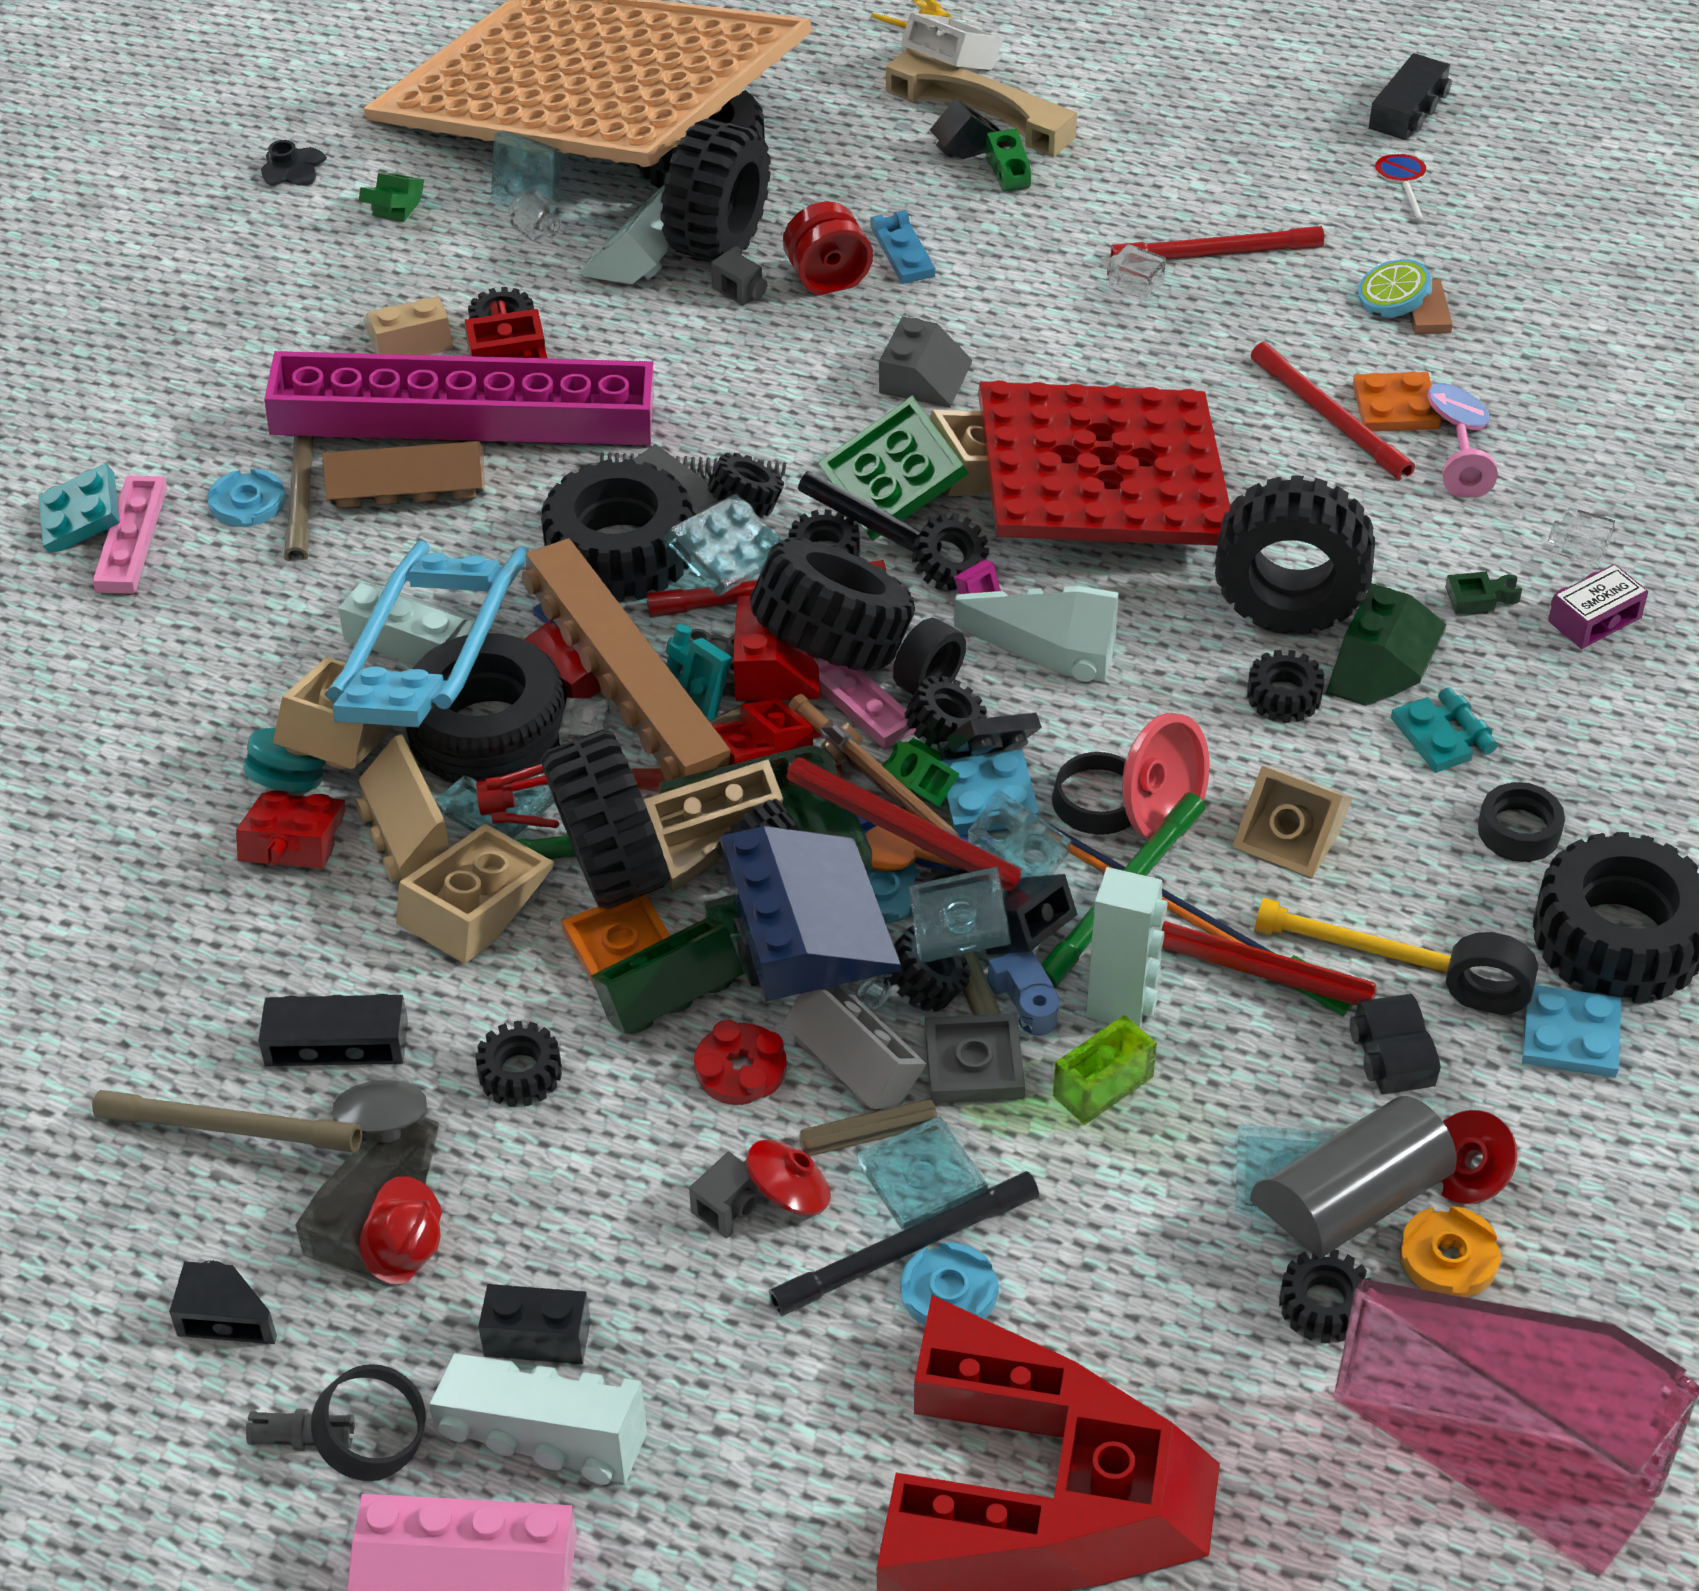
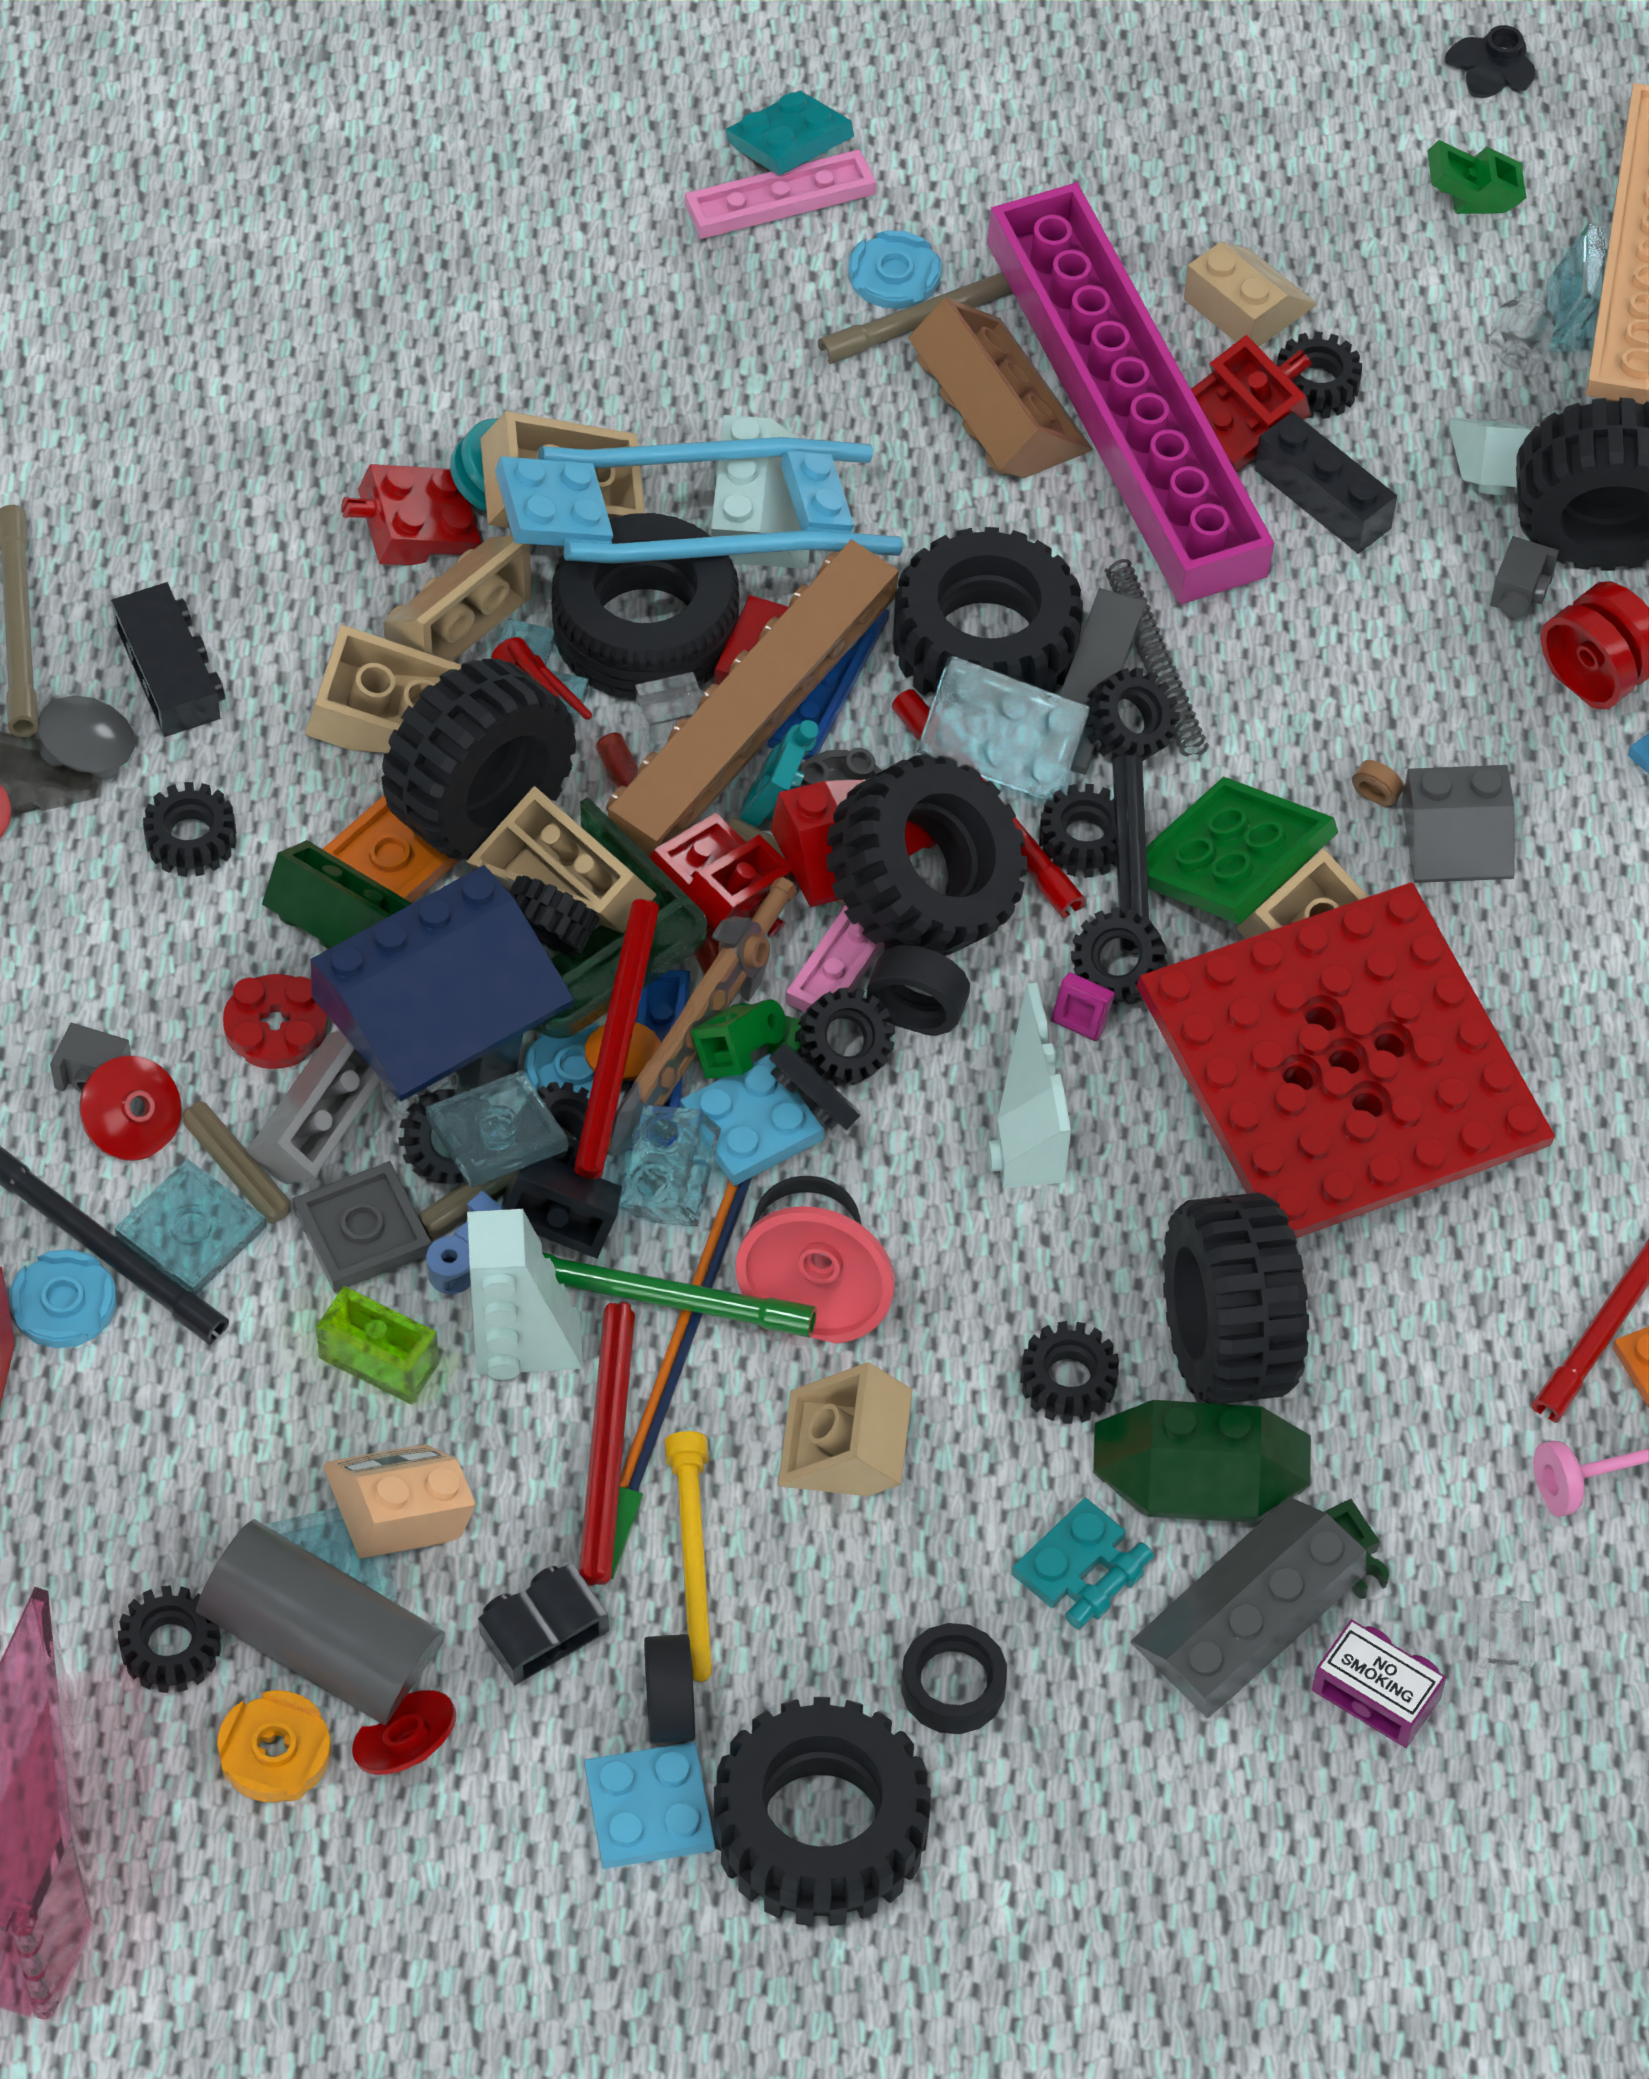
camera: 65 degrees right, 10 degrees up
(605, 333) = (1325, 482): none -> black brick
(867, 391) = (1377, 783): none -> medium nougat tile
(1250, 1094) = (401, 1499): none -> light nougat slope
(1519, 642) = (1252, 1604): none -> dark grey slope

